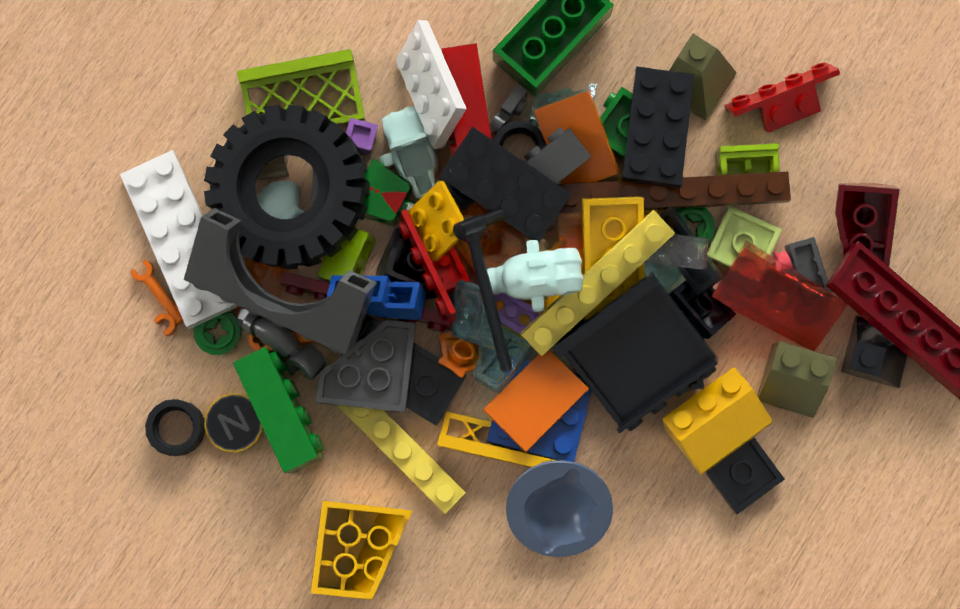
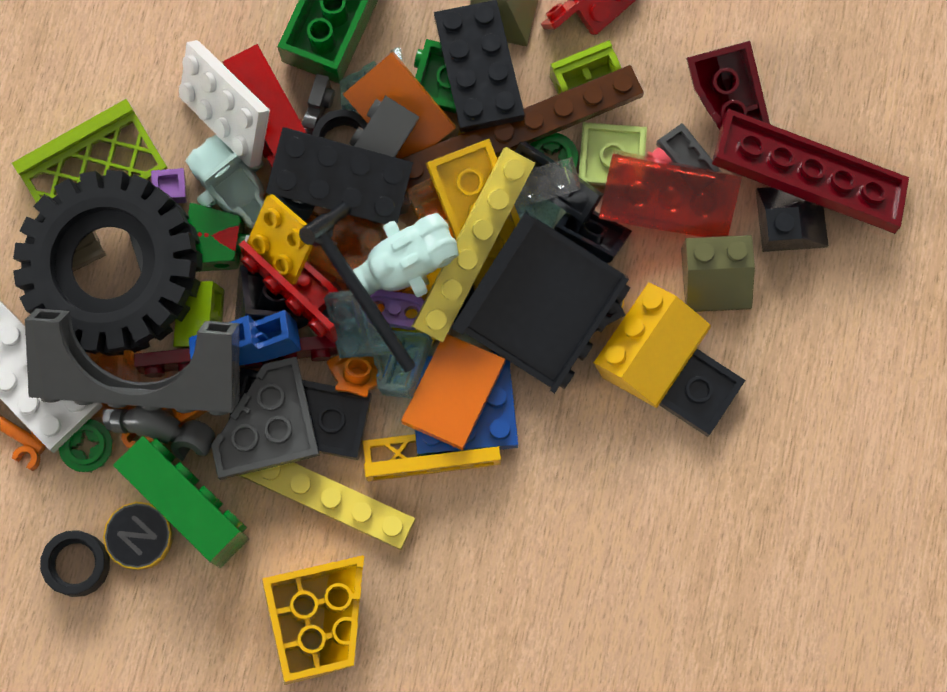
camera: 20 degrees left, 5 degrees down
(281, 199) = (106, 280): light aqua animal -> none
(559, 508) = (519, 494): sand blue piece -> none

